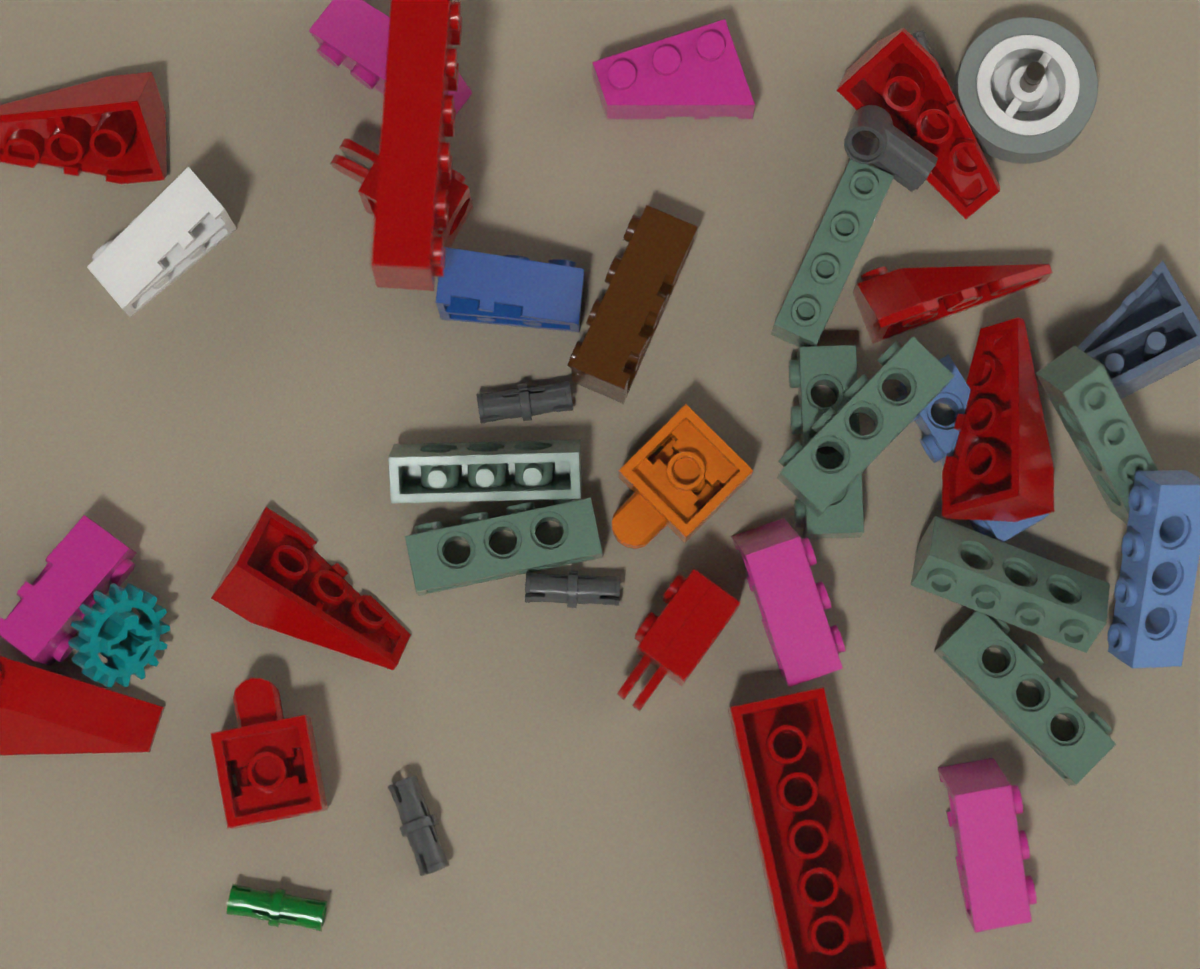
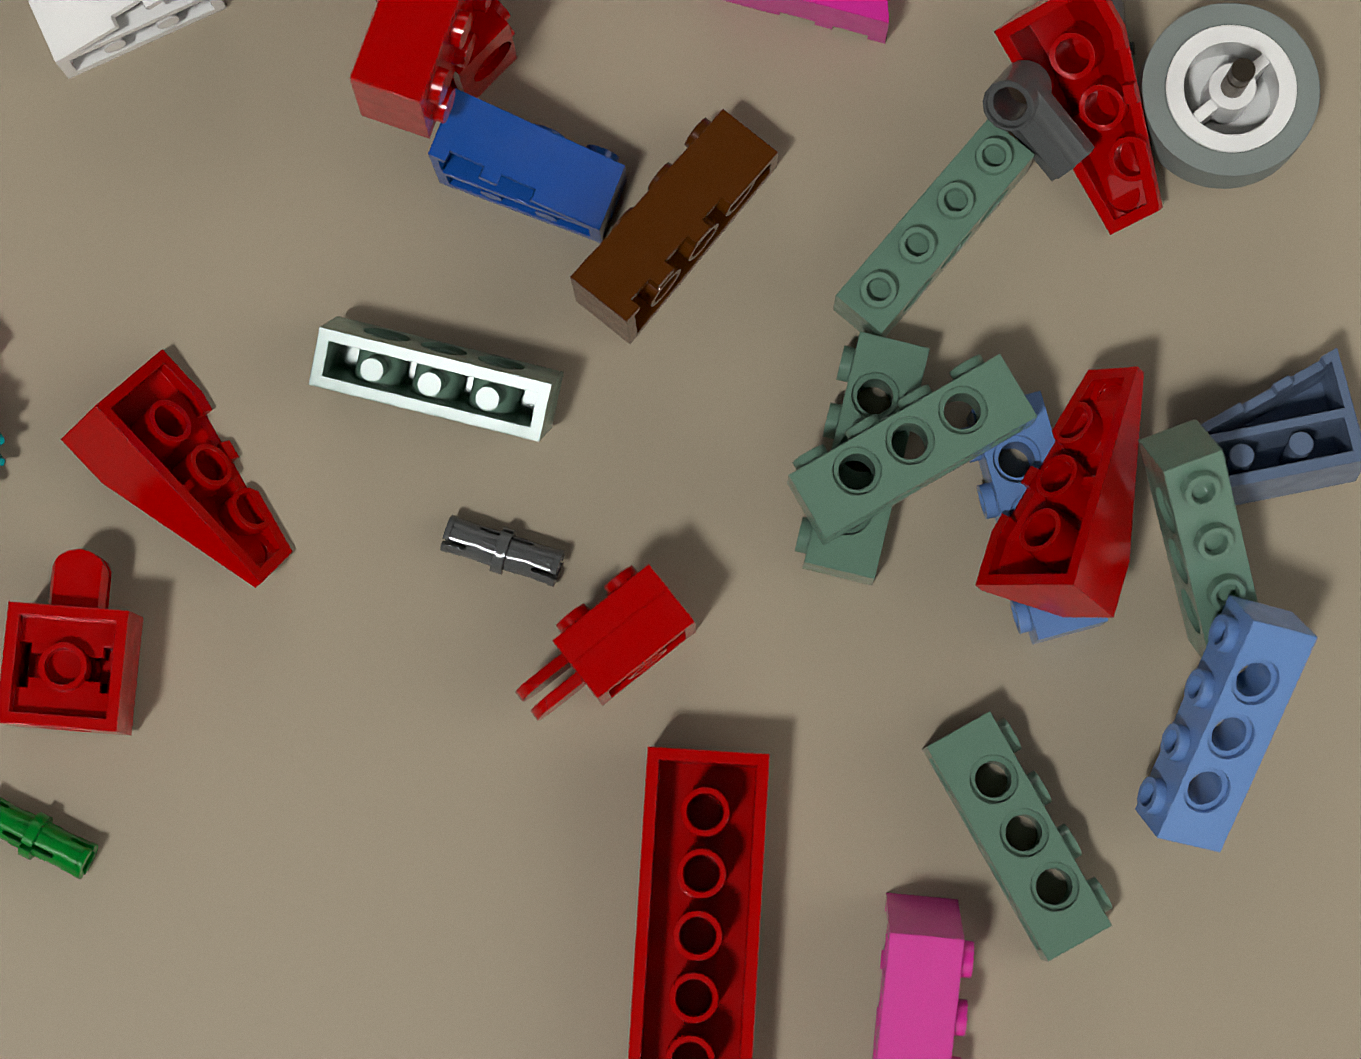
camera: 20 degrees right, 0 degrees up
(418, 825) = (233, 785): dark grey pin -> none
(435, 574) = (339, 484): sand green brick -> none
(525, 402) = (510, 308): dark grey pin -> none
(677, 481) = (666, 459): orange brick -> none
(790, 601) = (761, 639): dark pink wedge -> none
(921, 295) = (1034, 312): red wedge -> none
(1011, 584) = (1037, 693): sand green brick -> none

